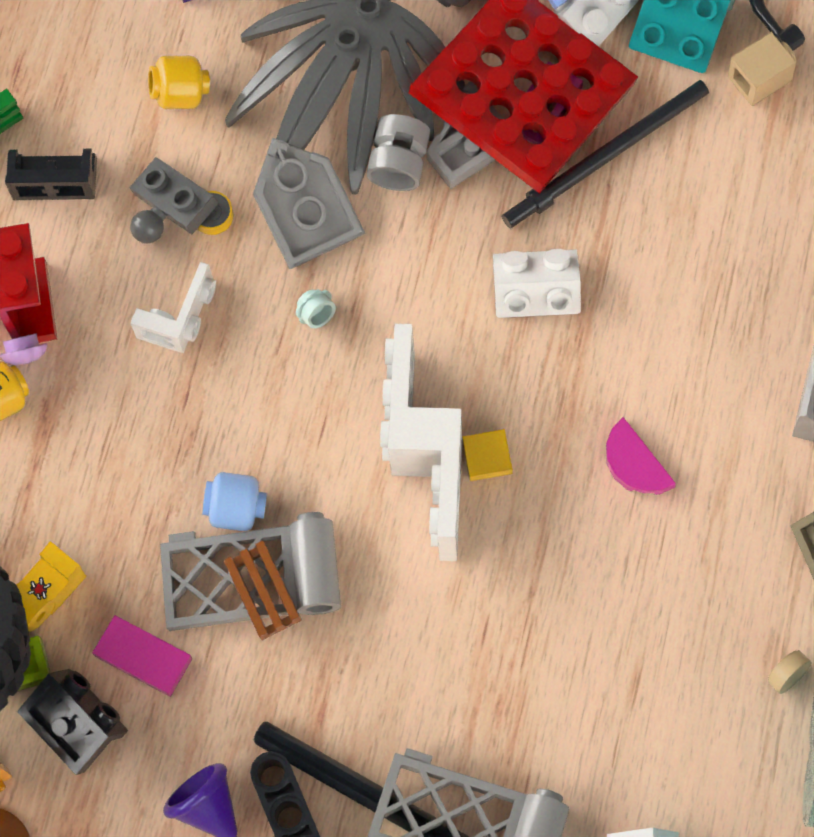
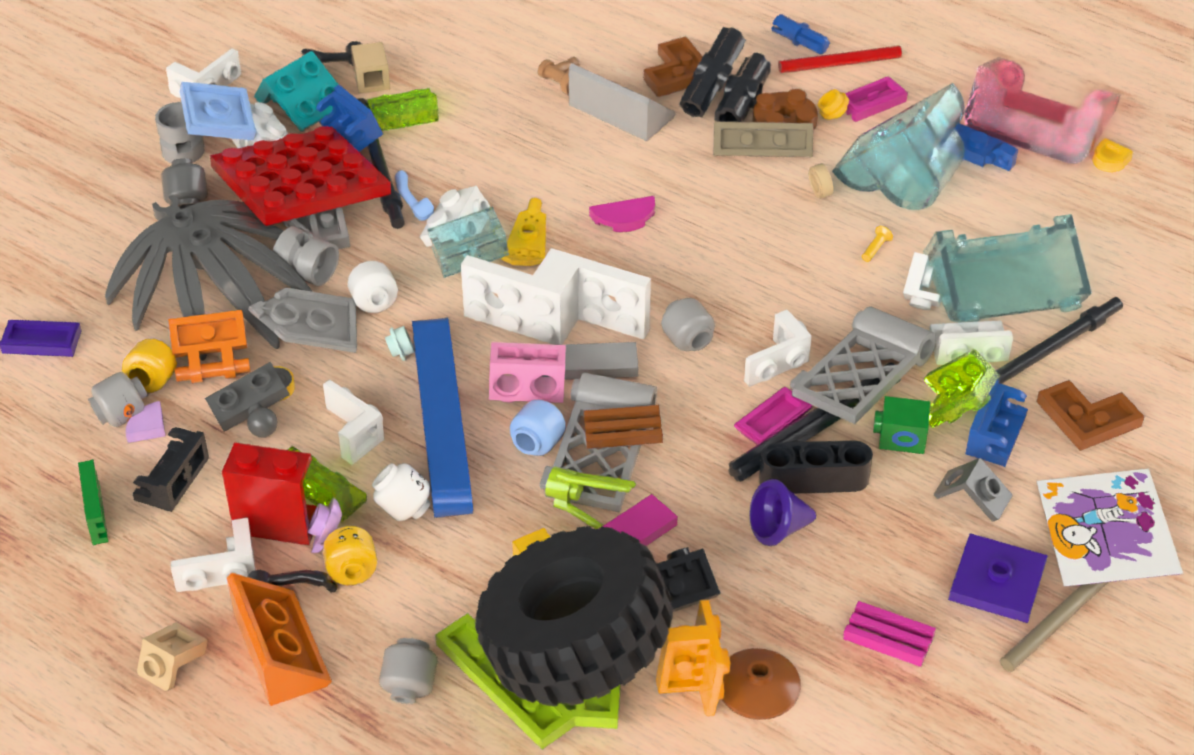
camera: 75 degrees left, 25 degrees down
(76, 325) = (323, 485): none -> clear neon green bracket
(89, 404) = (401, 492): none -> white head
(111, 119) = (147, 424): none -> lavender tile
(118, 77) = (117, 399): none -> light grey head
(156, 566) = (569, 484): none -> lime plant
(221, 396) = (442, 418): none -> blue beam
(232, 119) = (206, 335): none -> orange plate
(303, 458) = (527, 366): none -> bright pink brick
(358, 744) = (772, 416): none -> dark pink tile
(368, 508) = (601, 359): none -> light grey tile
(383, 242) = (372, 287): none -> white head
(458, 602) = (688, 324): none -> light grey head
(489, 309) = (471, 235): none -> clear light blue hinge
(489, 727) = (790, 351): none -> white bracket
(537, 235) = (421, 209): none -> light blue piece
(540, 376) = (523, 247): none -> yellow piece
(649, 94) = (350, 118): none -> blue hinge
(710, 138) = (404, 109): none -> clear neon green bracket
(725, 778) = (882, 234): none -> yellow piece

